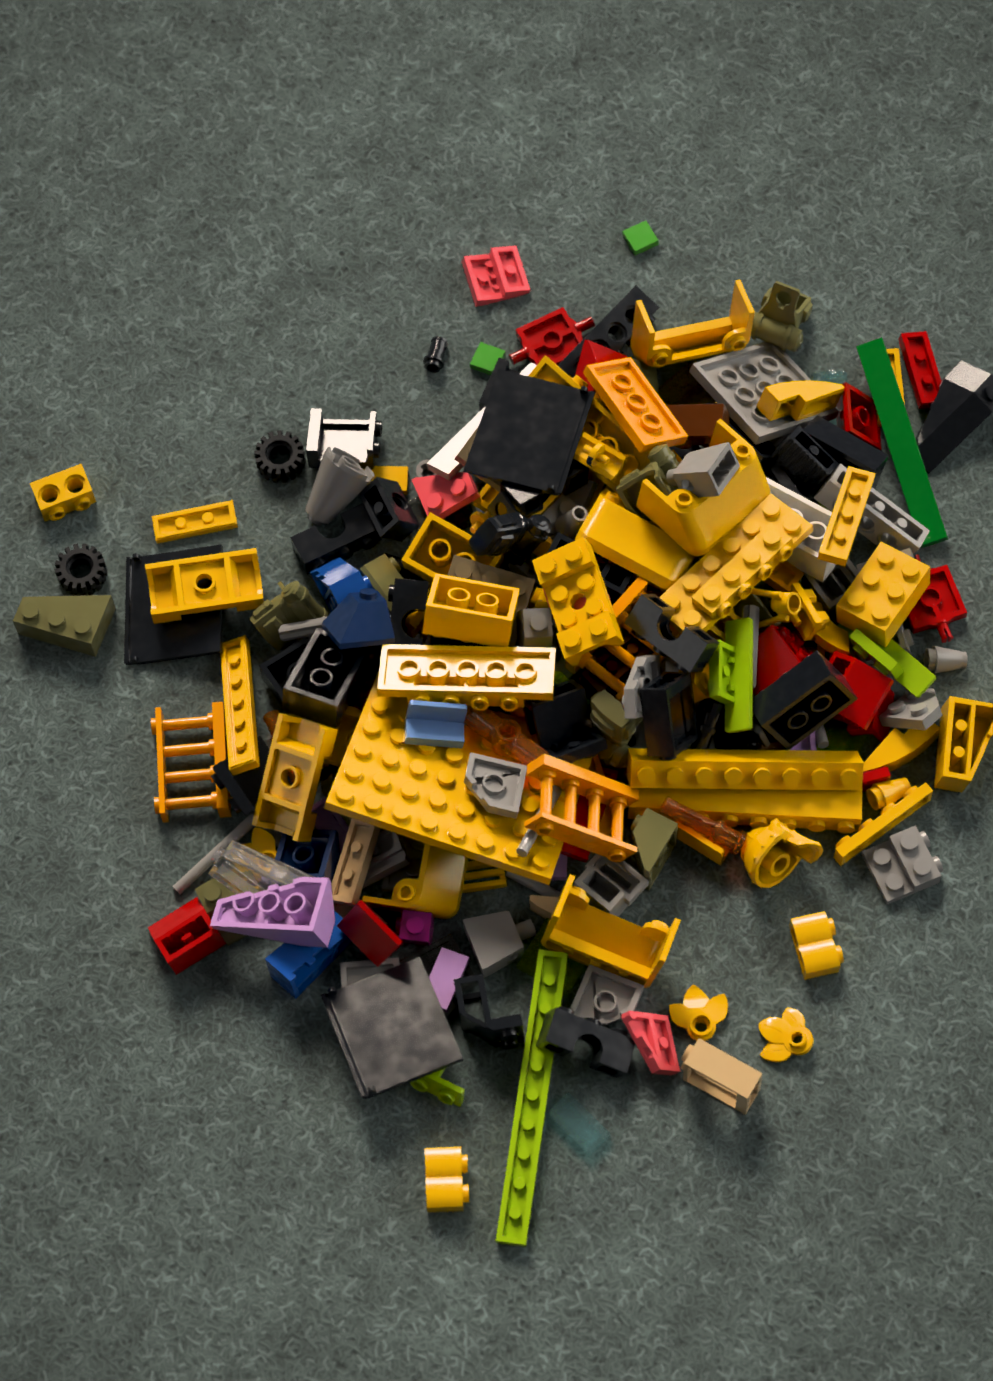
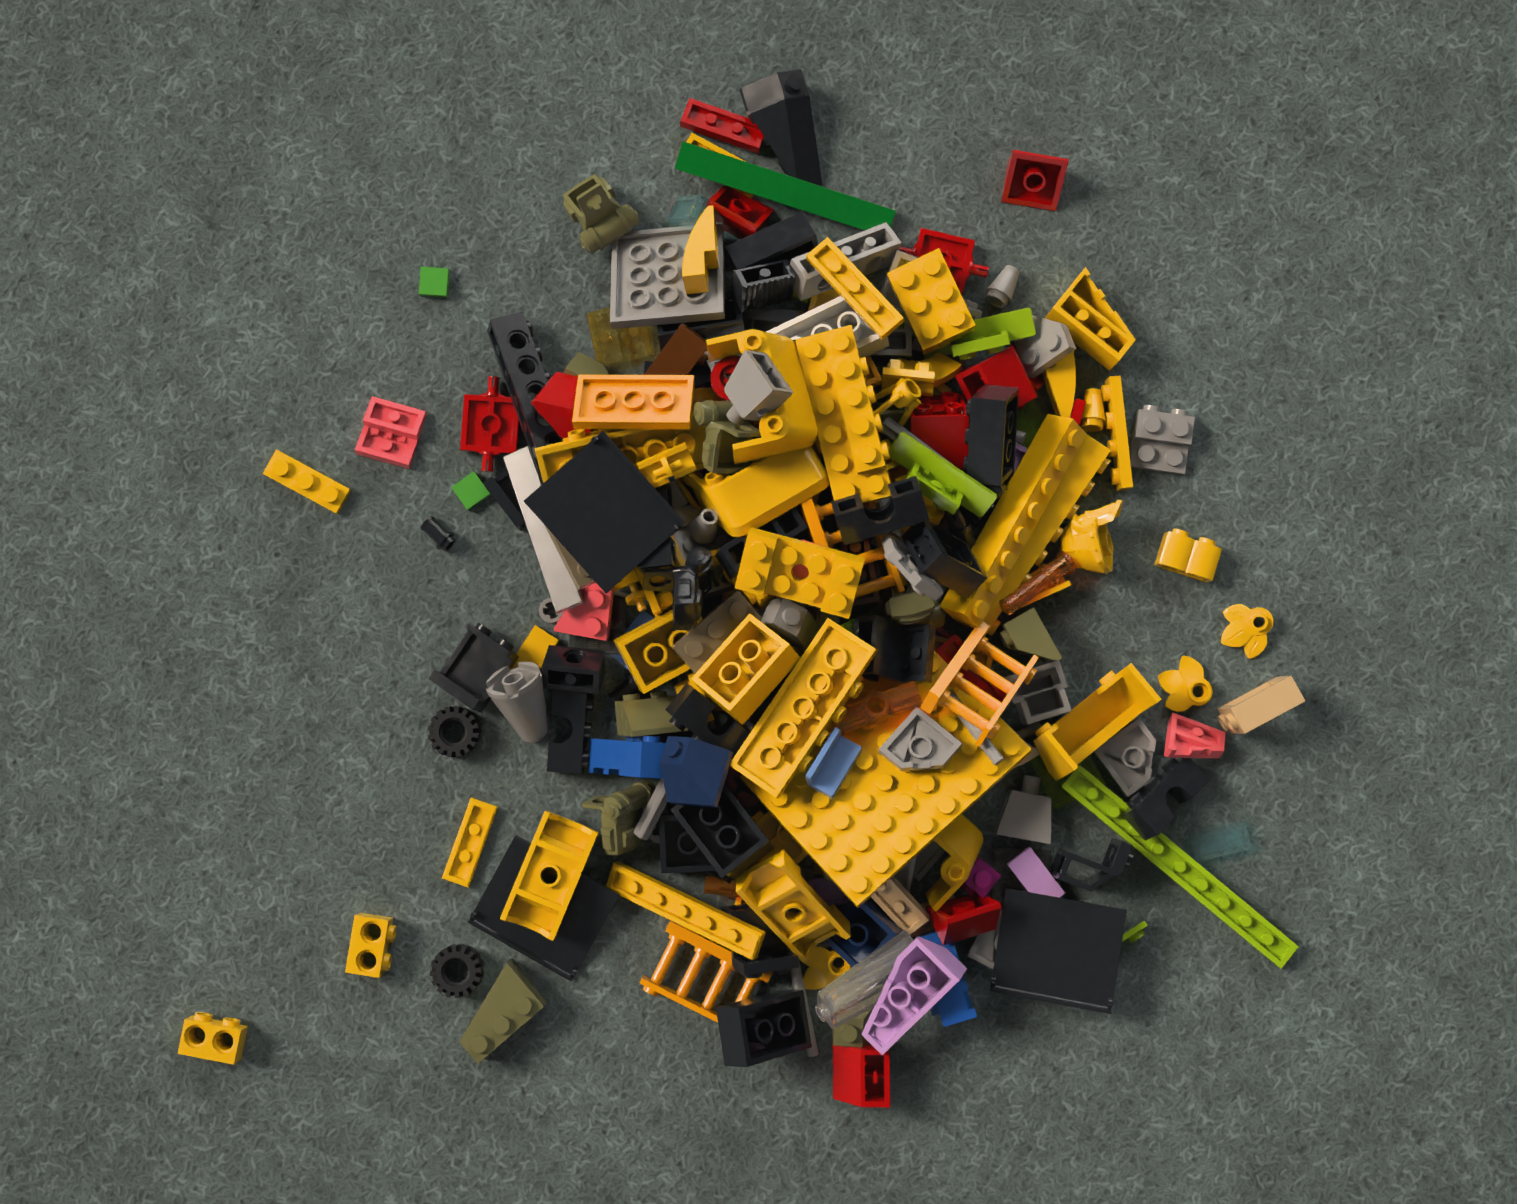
camera: 65 degrees left, 20 degrees up
(176, 821) = (763, 1028): none -> black brick
(415, 240) = (307, 481): none -> yellow plate
(444, 1179) = (1205, 979): yellow brick -> none
(696, 339) = (578, 301): yellow windscreen -> none

